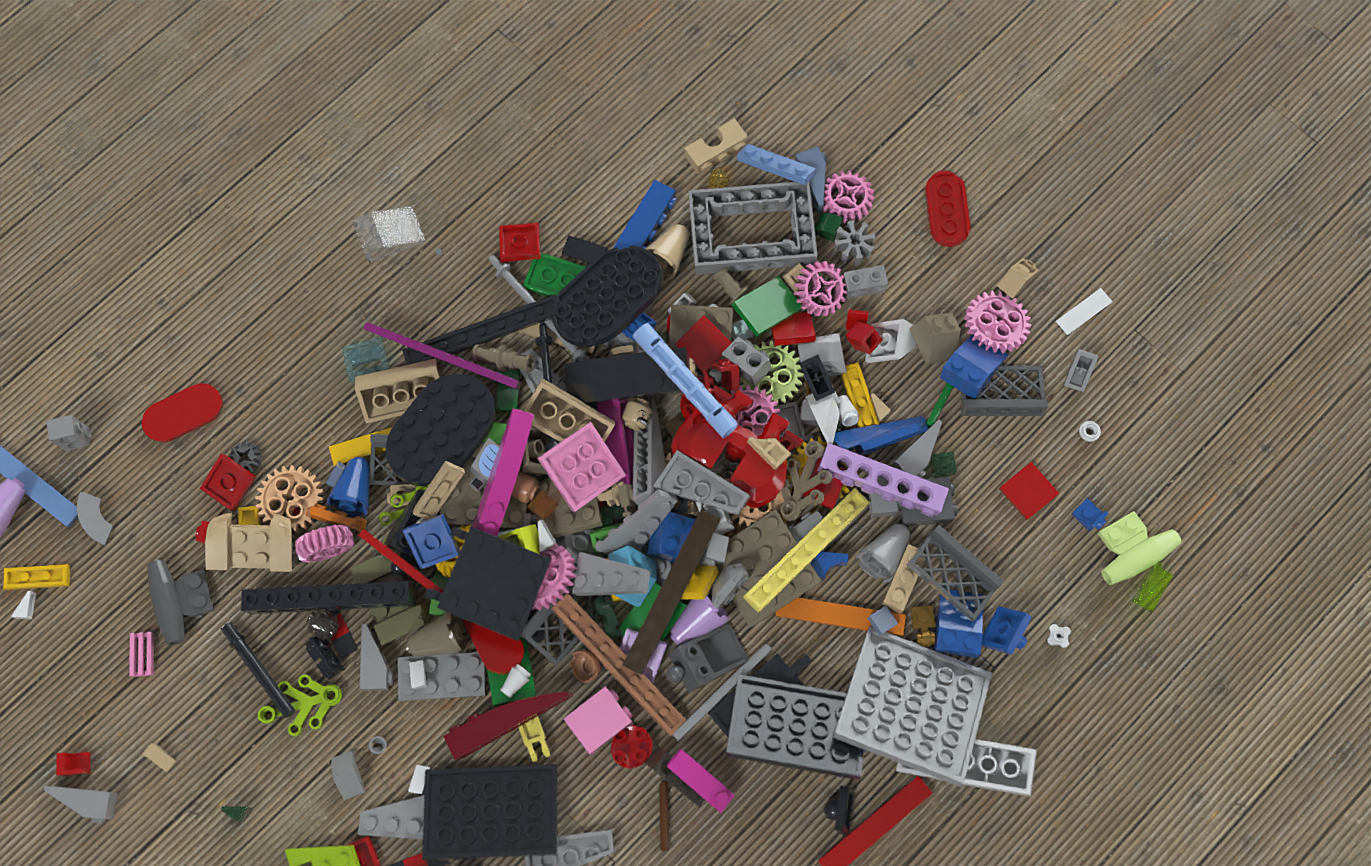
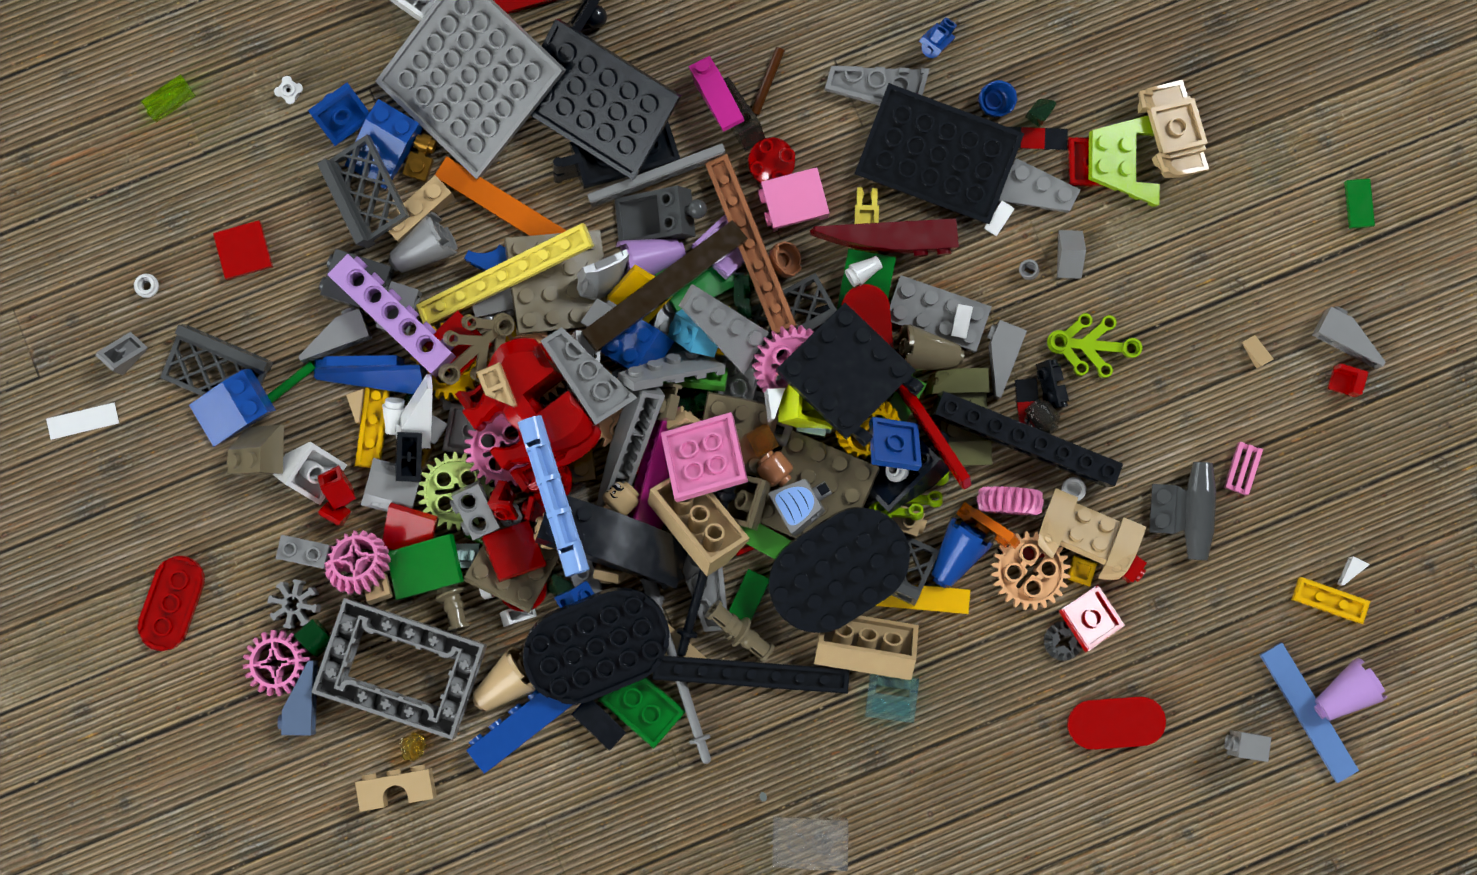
camera: 160 degrees left, 10 degrees up
(91, 518) = (1252, 639): light grey tile -> none
(236, 812) = (1195, 262): clear green slope -> none
(238, 642) = (1126, 398): black axle -> none
(277, 579) = (1074, 487): none -> white tile
(335, 474) = (971, 576): sand blue tile -> none
(438, 491) = (867, 497): tan tile -> none
(441, 355) = (798, 653): magenta tile -> none
(503, 473) = (791, 480): dark pink slope -> none
(519, 242) = (667, 766): red tile -> none
(776, 164) = (338, 732): medium blue plate -> none
(882, 620) = (460, 177): sand blue tile -> none
(943, 464) = (318, 313): clear green slope -> none
(997, 322) = (182, 444): bright pink gear -> none
(1018, 277) = (134, 485): tan slope -> none
(1090, 515) = (192, 197): blue bracket -> none
(1135, 550) = (165, 145): yellowish green plate -> none

